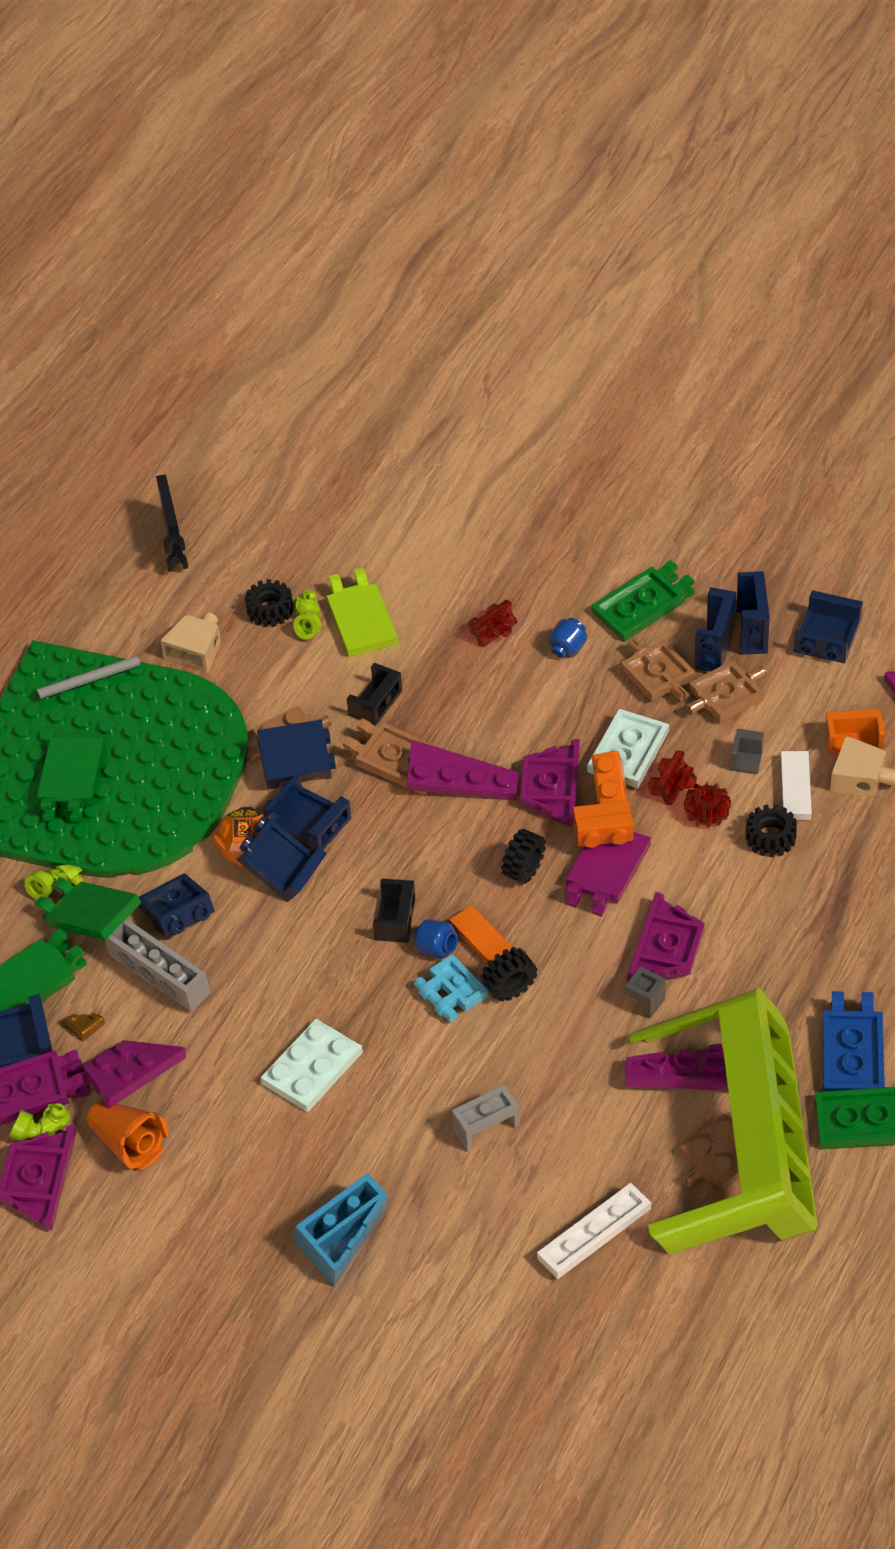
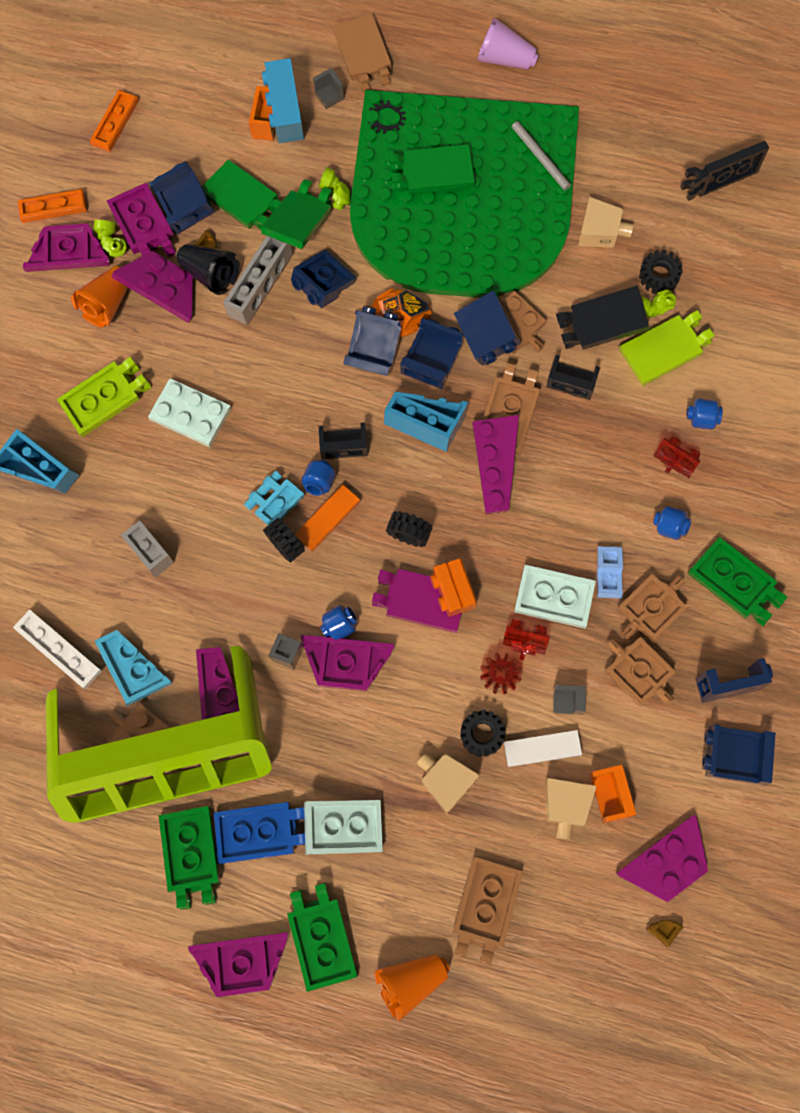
camera: 80 degrees right, 25 degrees up
(120, 1015) = (209, 266): none -> black cone
(264, 1155) = (103, 396): none -> lime tile
(315, 652) = (604, 319): none -> black tile
(392, 825) = (425, 419): none -> dark azure wedge
(450, 591) = (704, 413): none -> blue head
(551, 782) = (503, 539): magenta wing -> none
(604, 701) = (609, 572): none -> light blue slope
(609, 777) = (500, 586): orange brick -> none
(619, 940) = (339, 622): none -> blue head
(636, 1156) = (129, 668): none -> medium azure wing
(713, 643) = (720, 657): dark blue panel -> none
(820, 867) = (446, 780): none -> tan torso
(859, 960) = (343, 827): none -> light aqua plate

